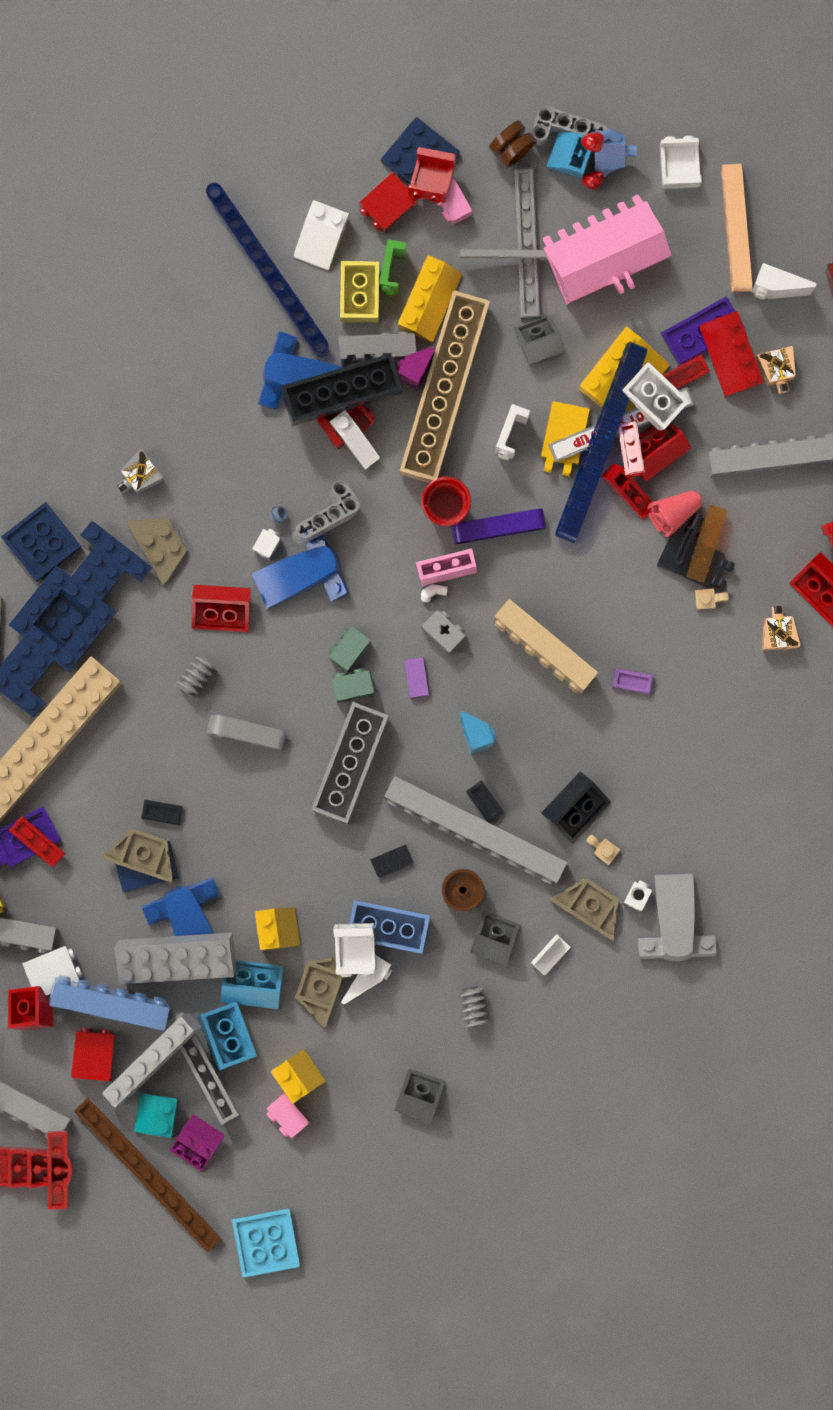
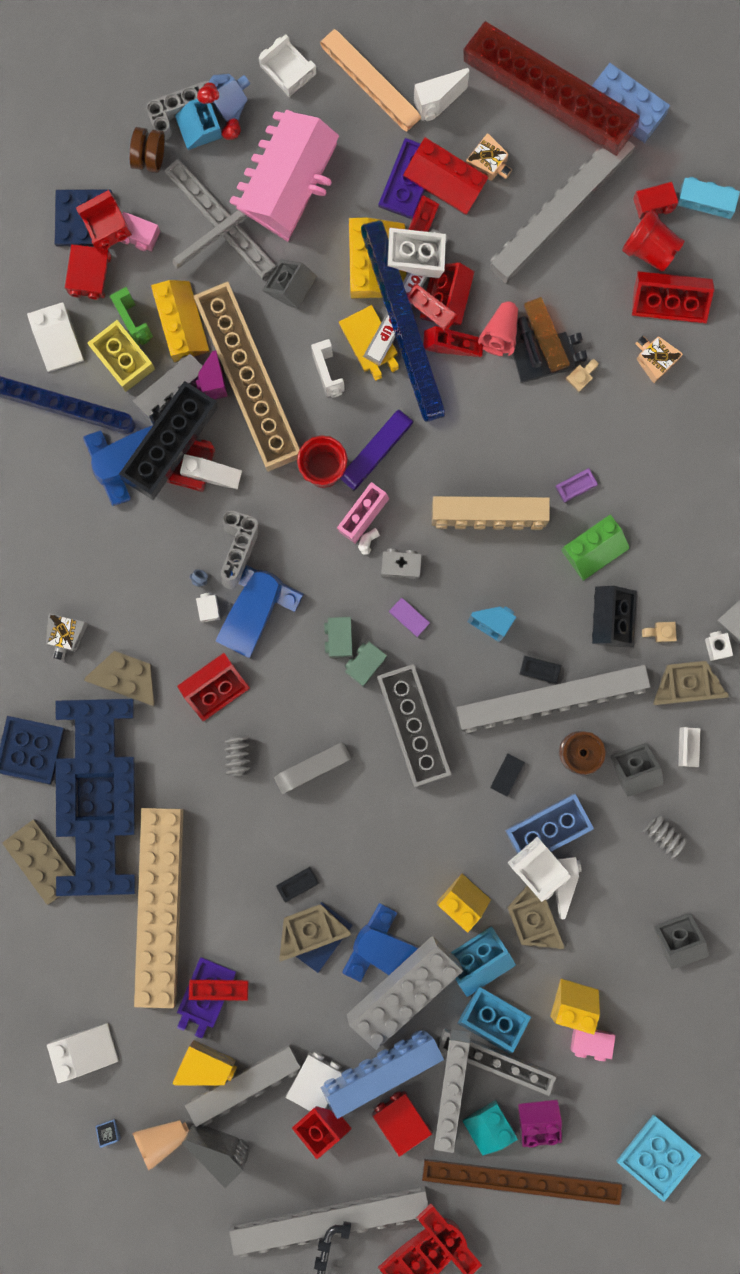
camera: 35 degrees left, 0 degrees up
(606, 742) = (596, 547): none -> bright green slope

